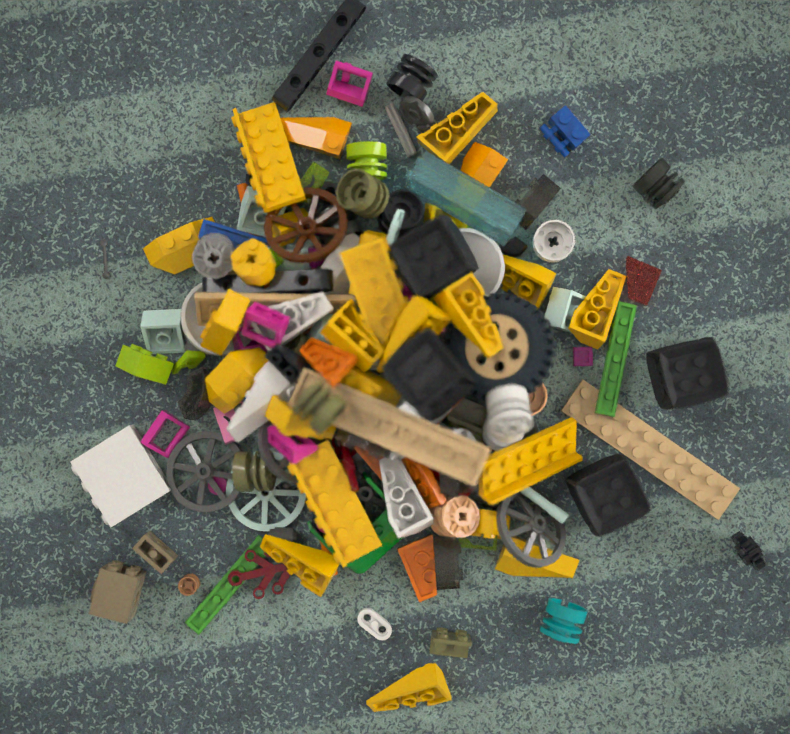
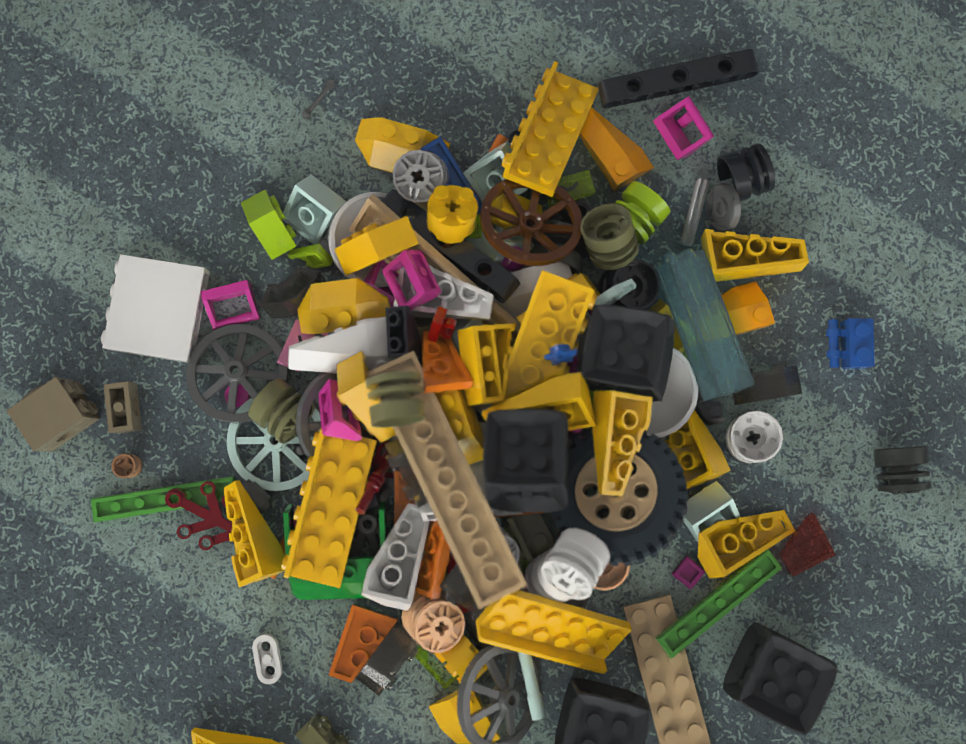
camera: 40 degrees right, 5 degrees down
(307, 337) = (440, 325): none -> red tile
(394, 294) = (560, 353): none -> blue plate

